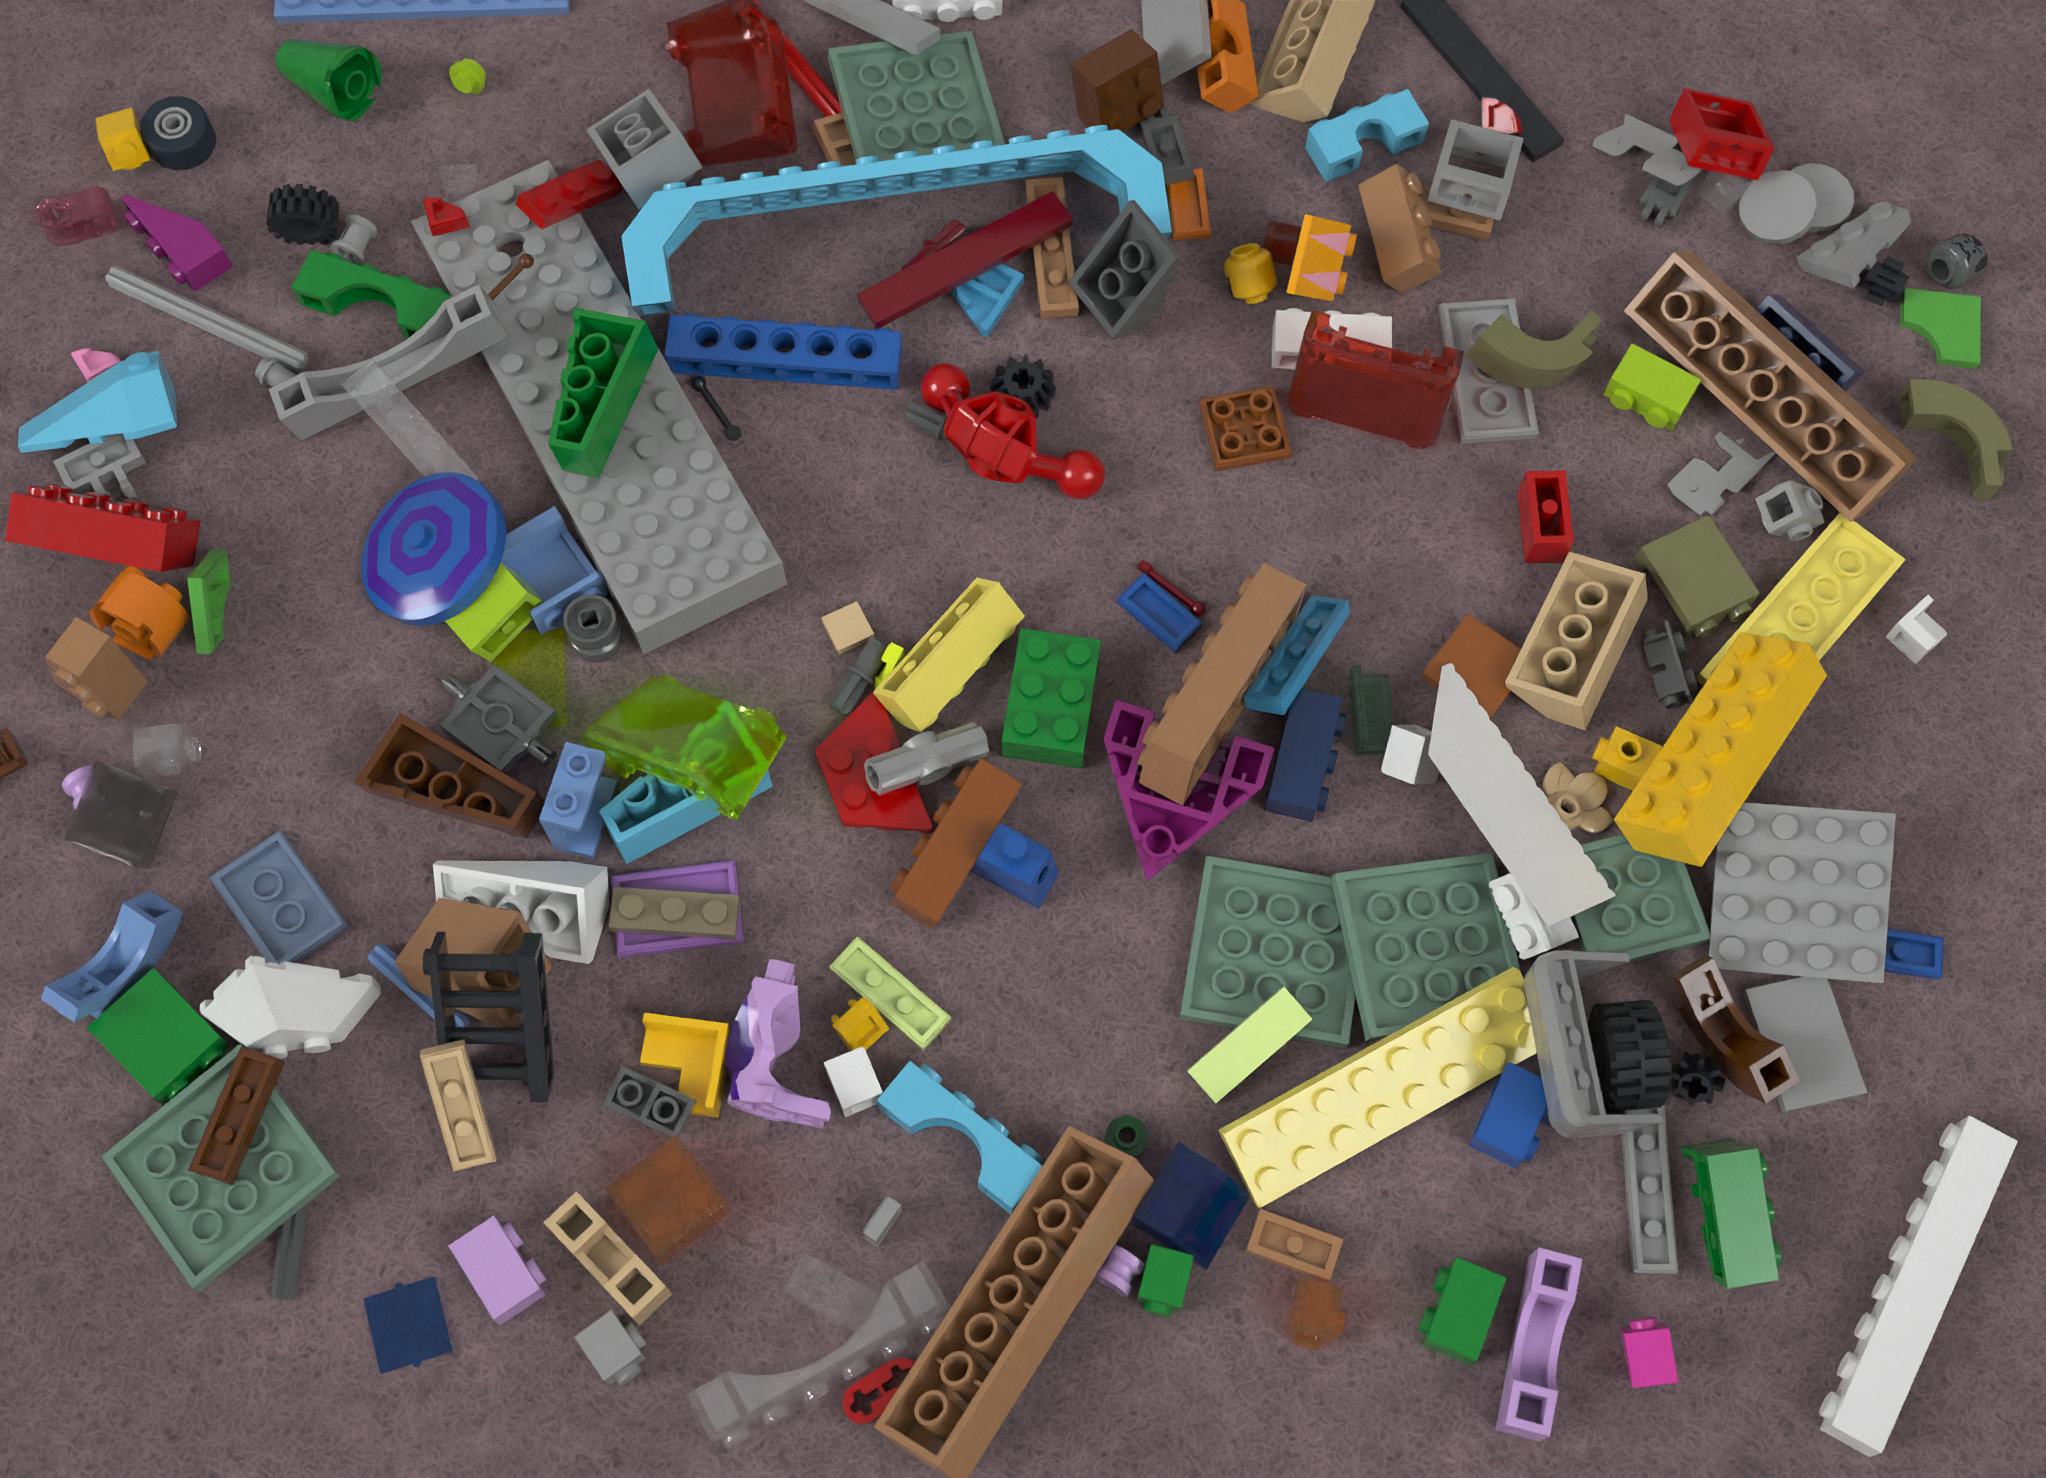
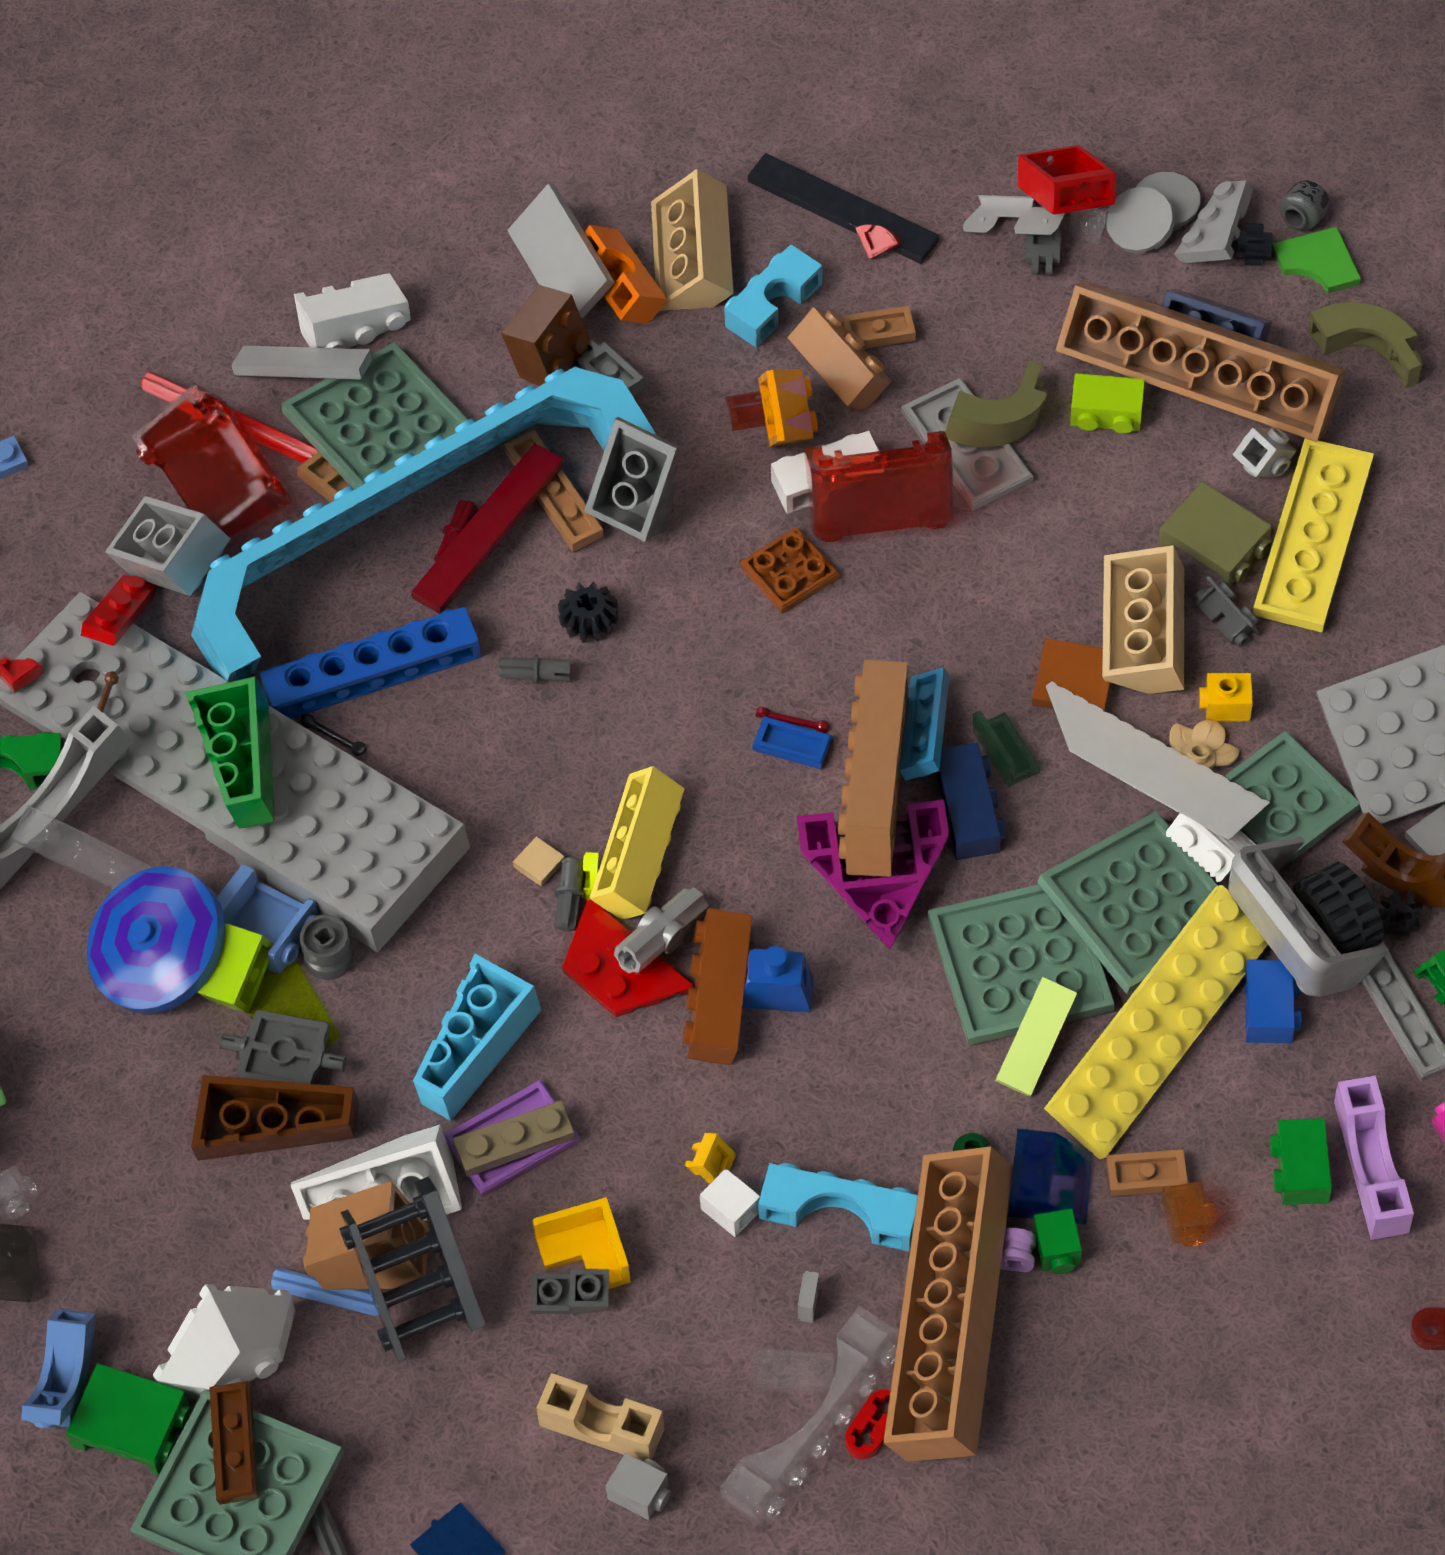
camera: 20 degrees left, 10 degrees down
(279, 901) = (165, 1272): sand blue tile -> none
(458, 1105) = (415, 1355): tan tile -> none
(498, 1269) = (513, 1469): lavender brick -> none
(575, 799) = (391, 1081): medium blue panel -> none
(669, 1199) = (626, 1354): clear orange brick -> none
(689, 741) = (458, 992): clear neon green windscreen -> none
(762, 1032) = (635, 1200): lavender hips -> none
(890, 993) = (738, 1129): yellowish green tile -> none
(988, 296) = (520, 551): dark azure wing -> none
(1000, 436) = (594, 654): red piece -> none
(1051, 698) = (739, 843): green brick -> none
(1189, 208) = (657, 411): orange tile -> none
(1250, 273) = (733, 443): yellow head -> none
(1408, 755) = (1055, 765): white panel -> none
(1487, 192) = (865, 305): light grey window -> none
(1545, 516) = (1071, 537): red brick -> none
(1709, 483) = (1192, 459): light grey piece -> none
(1720, 748) = (1297, 652): yellow brick -> none
(1917, 632) = (1408, 506): white panel -> none

